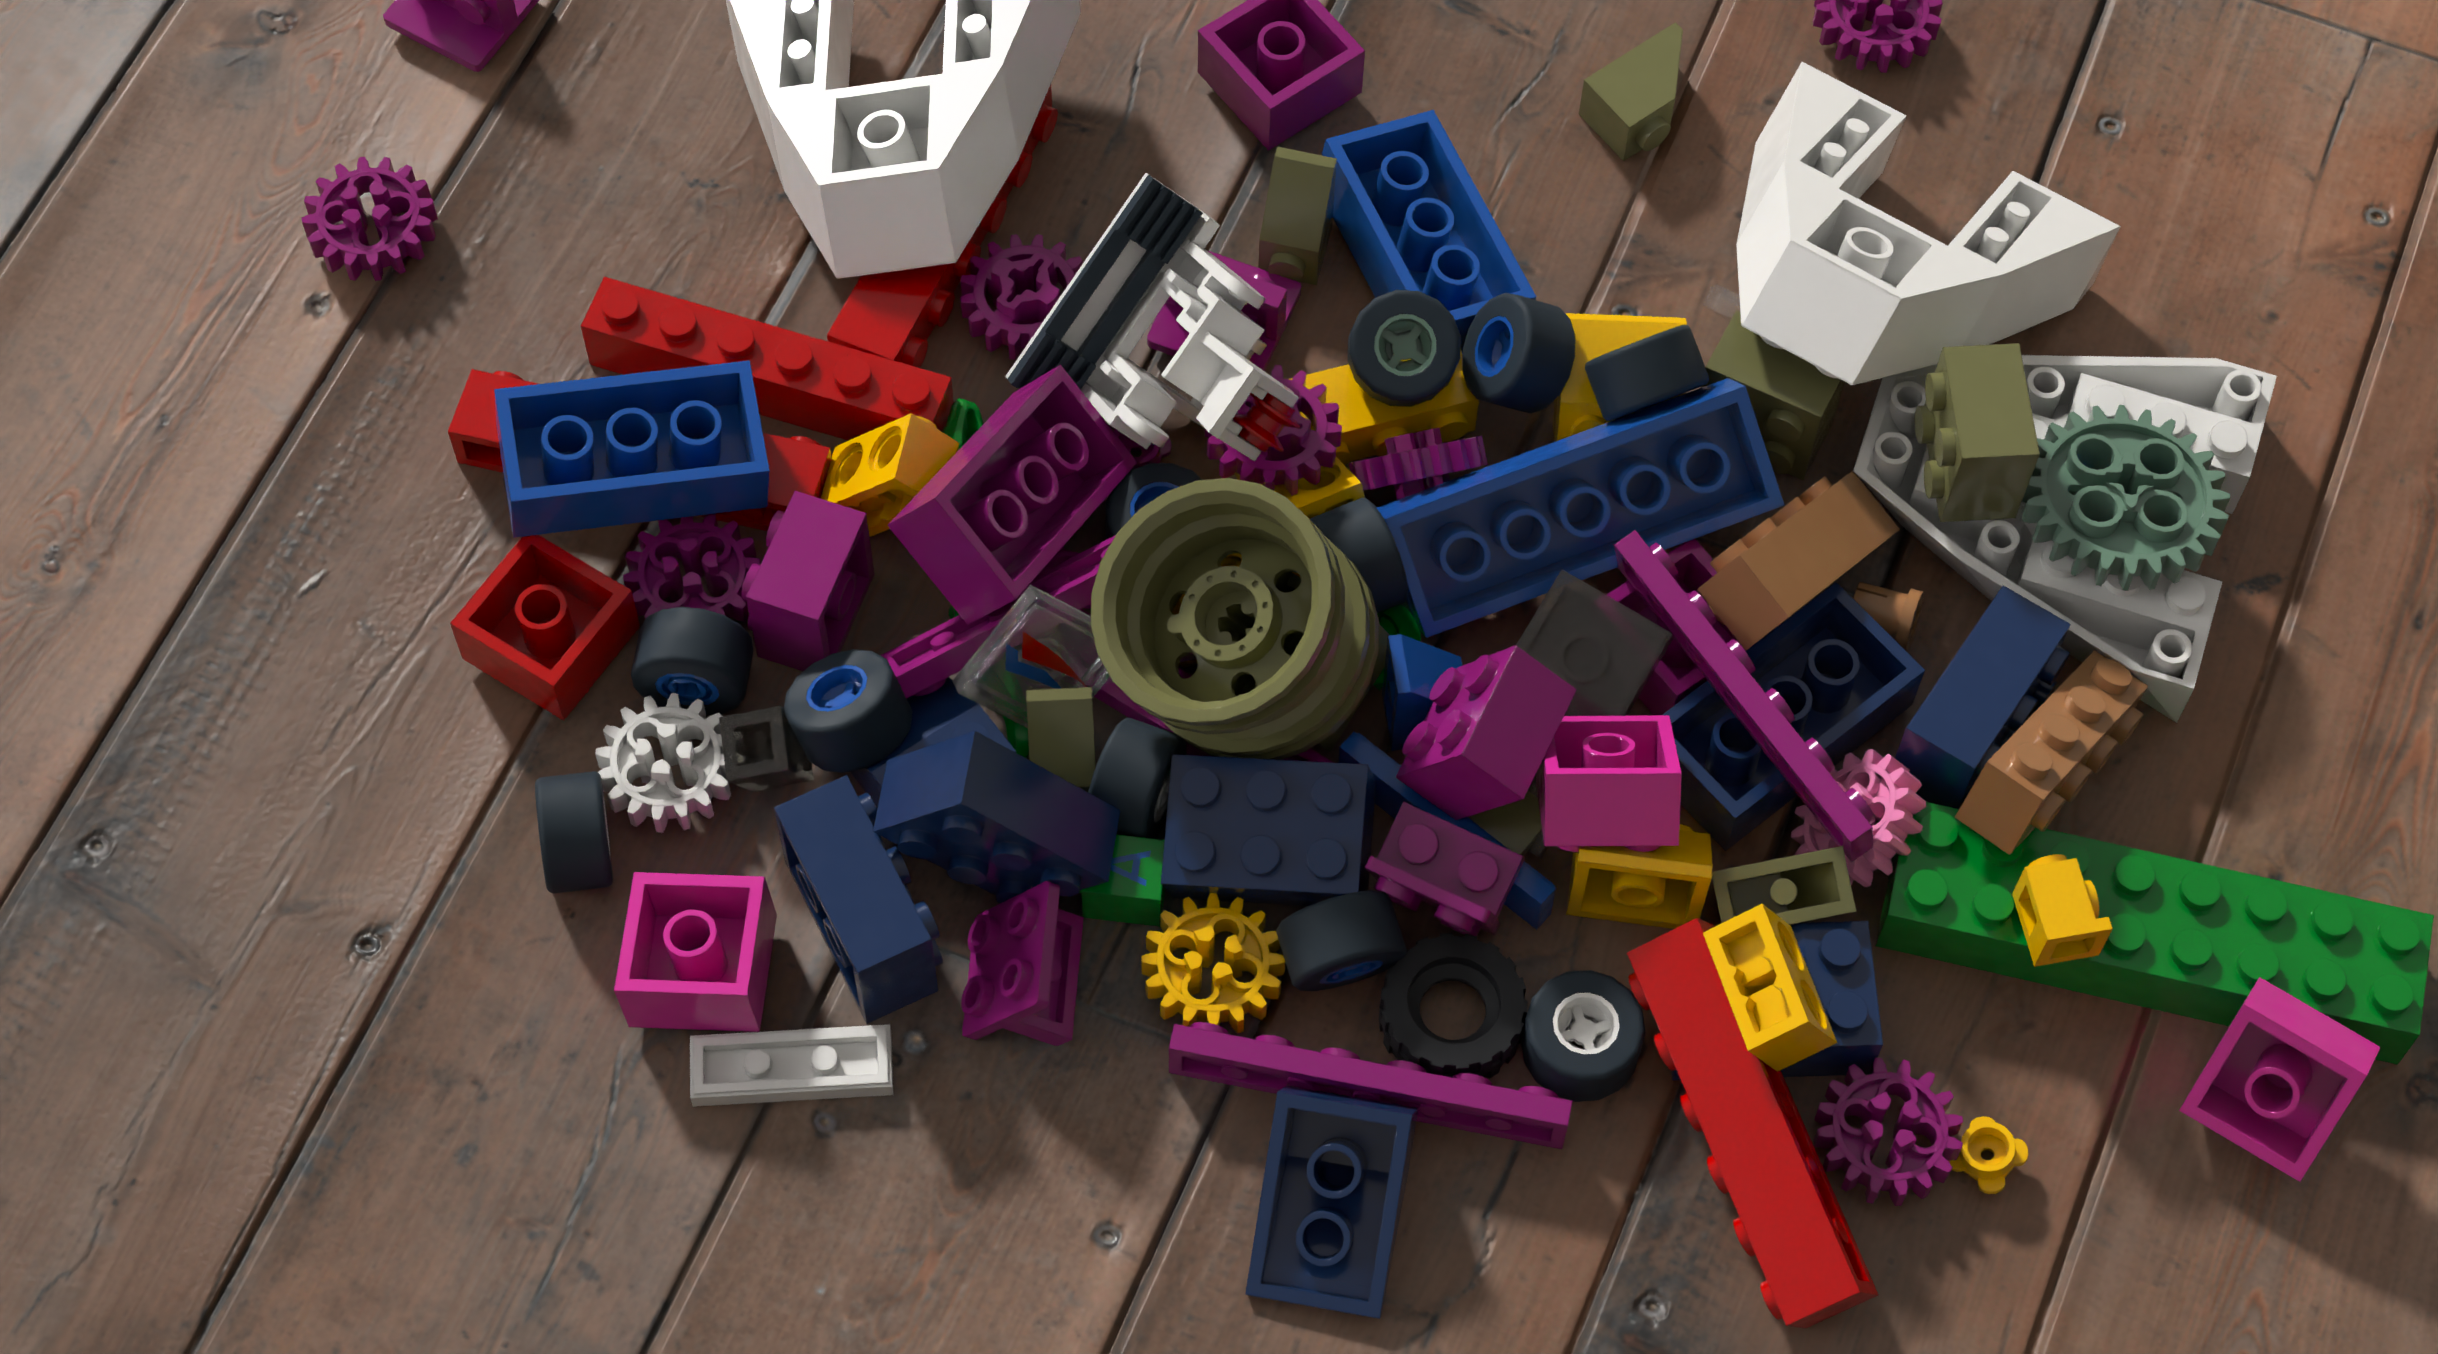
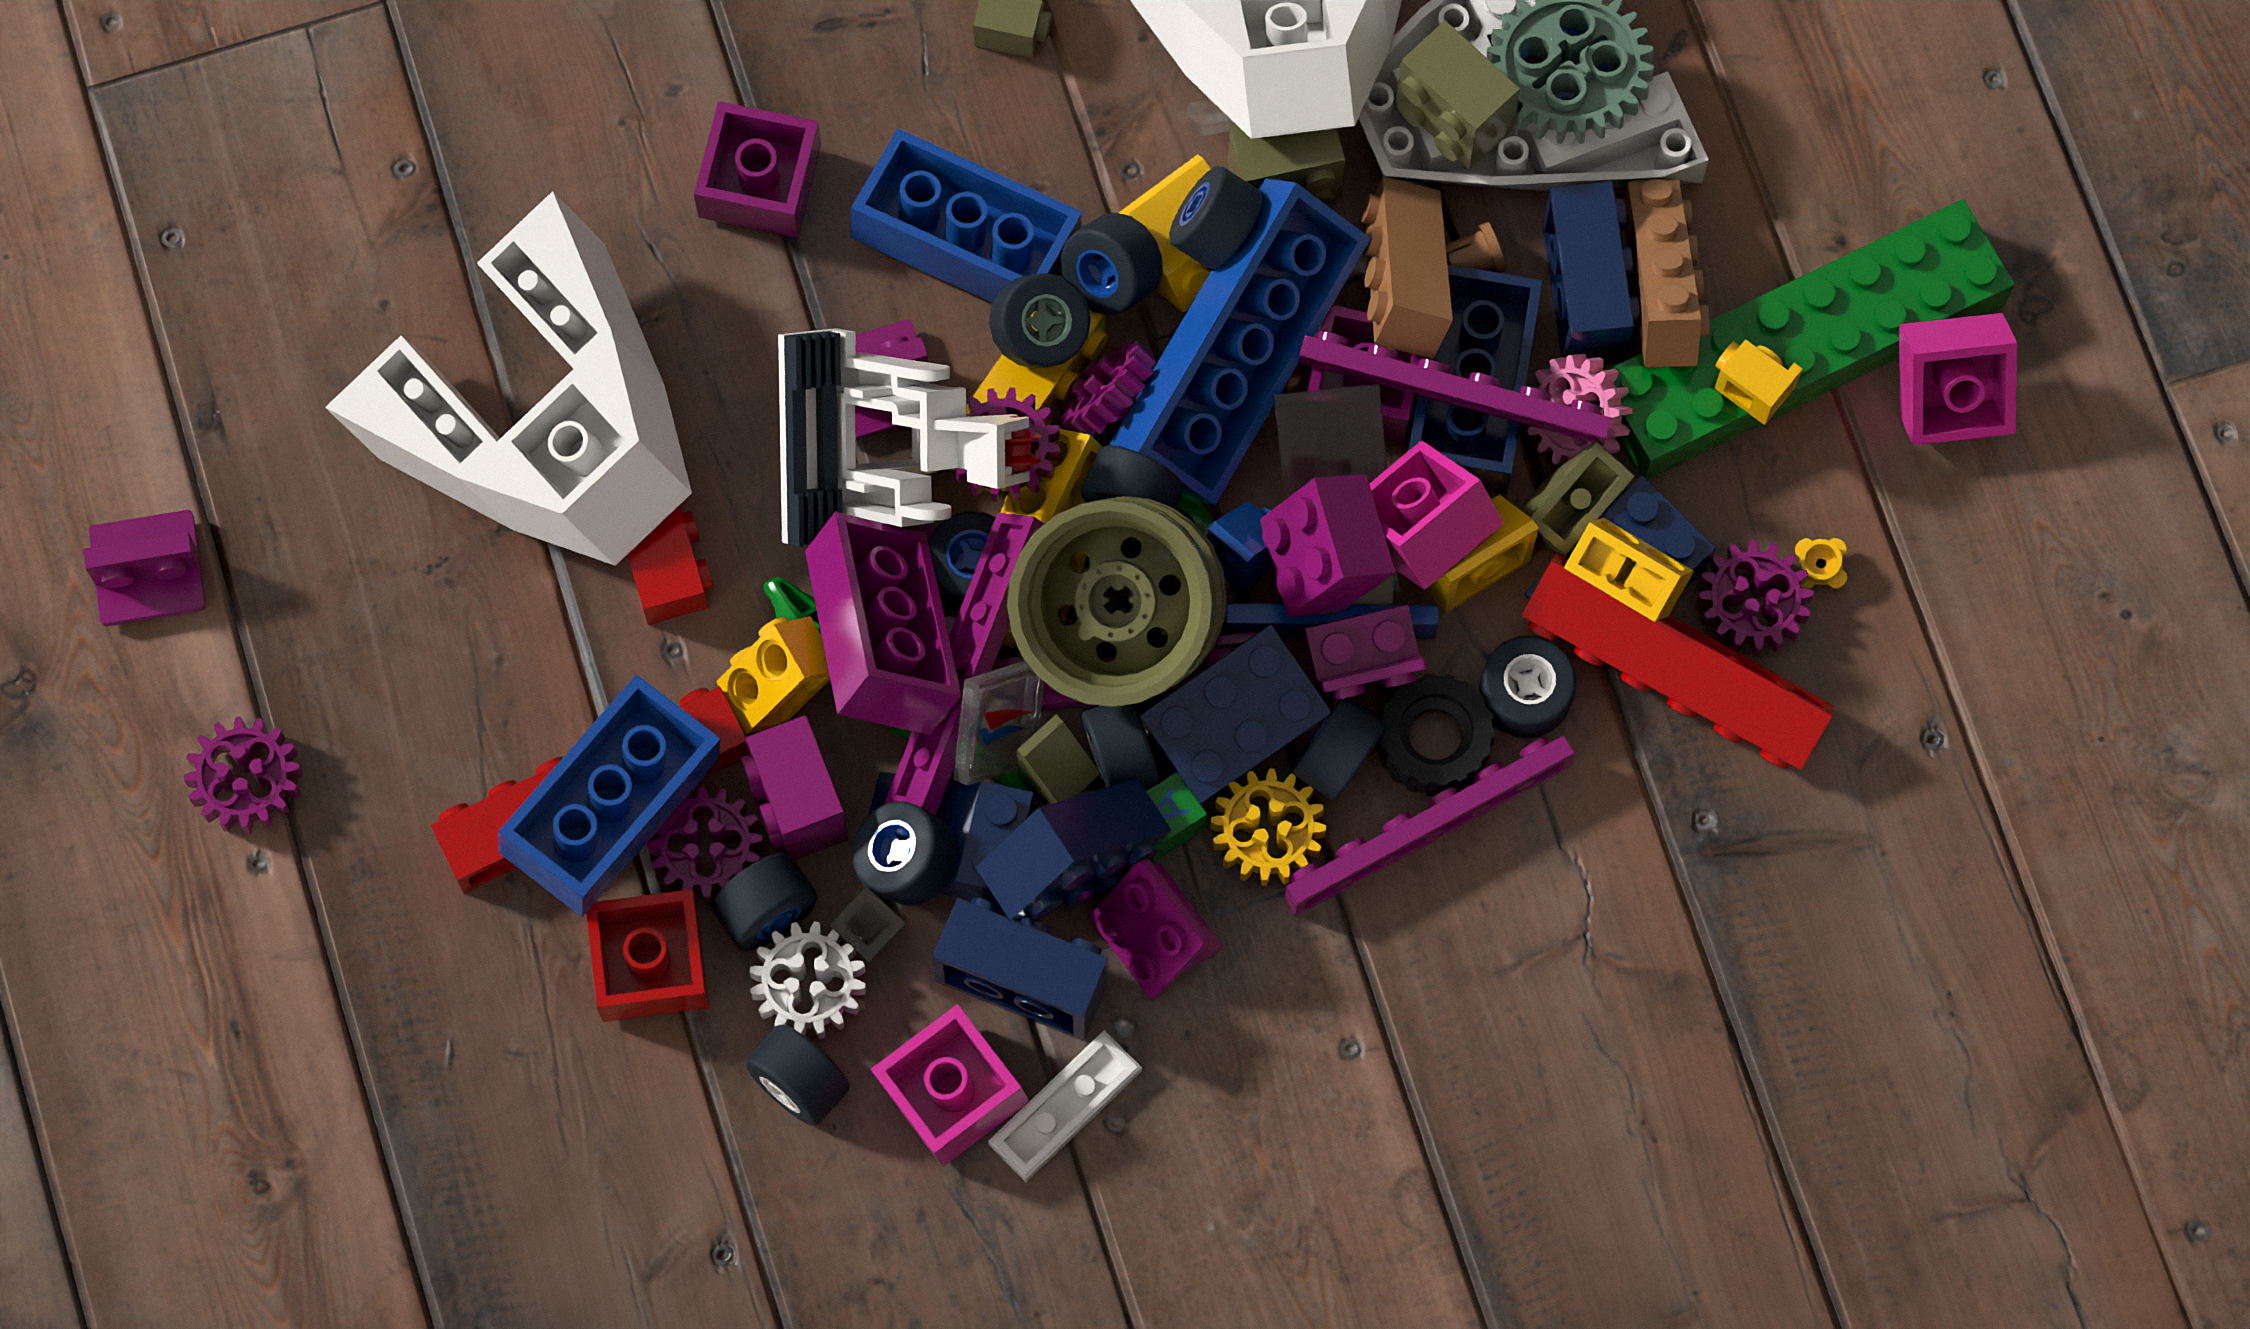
camera: 40 degrees left, 10 degrees up
(792, 373) = (598, 669): red brick -> none
(1021, 288) = (719, 474): magenta gear -> none
(1297, 215) = (873, 277): olive slope -> none
(1331, 1200) = (1469, 913): dark blue slope -> none

